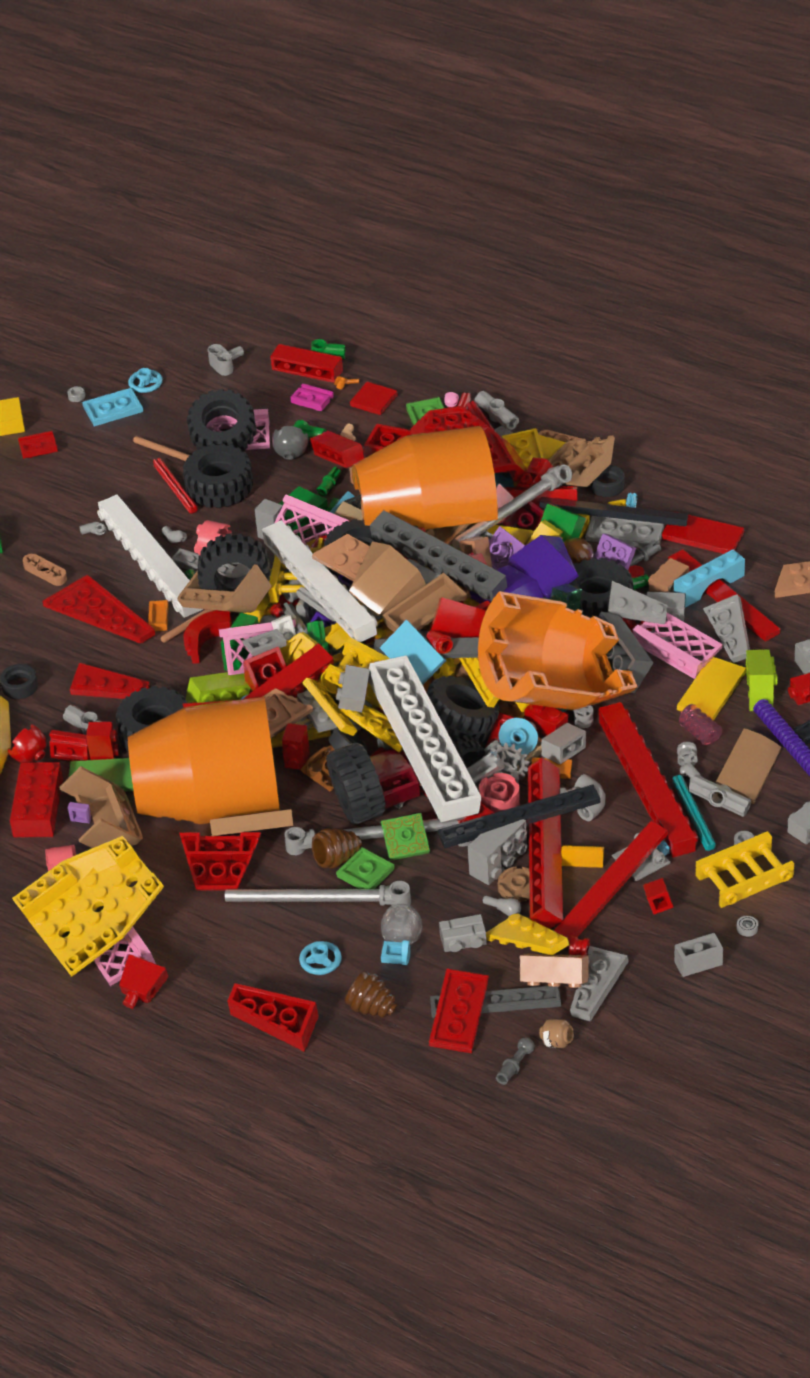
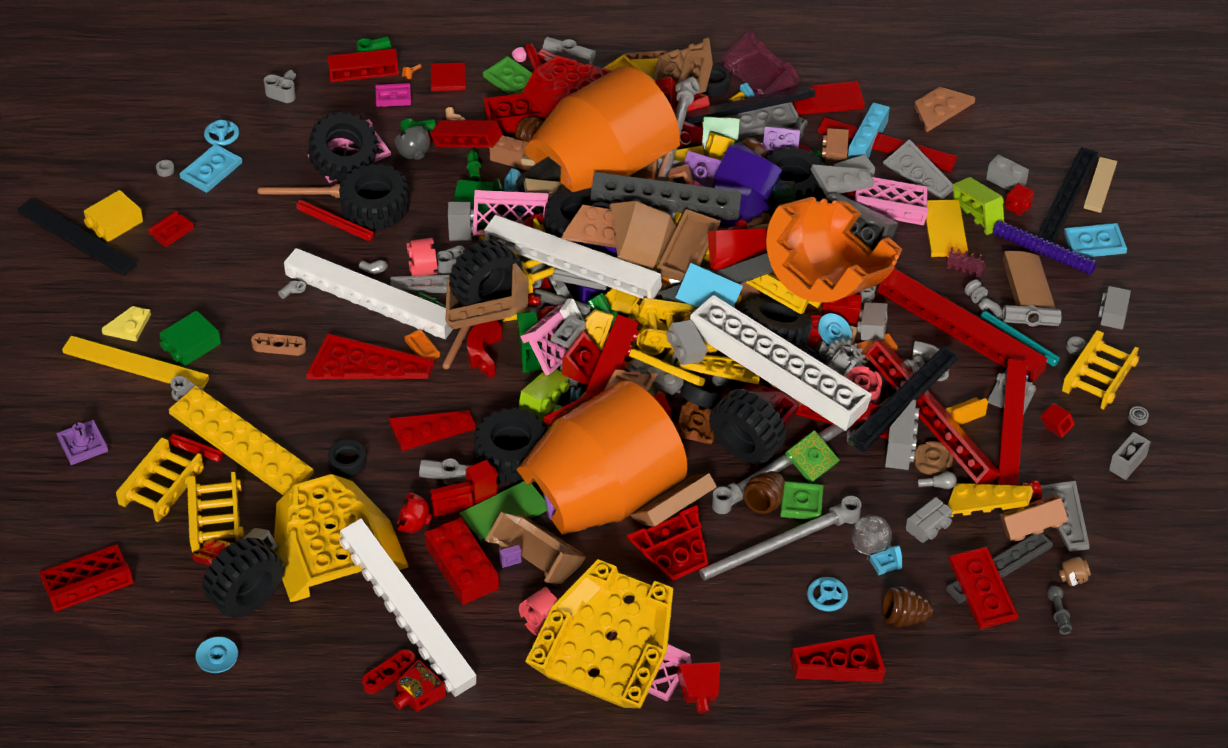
camera: 35 degrees left, 5 degrees up
(441, 642) = (730, 271): red cone -> none
(659, 481) = (759, 66): none -> clear pink windscreen

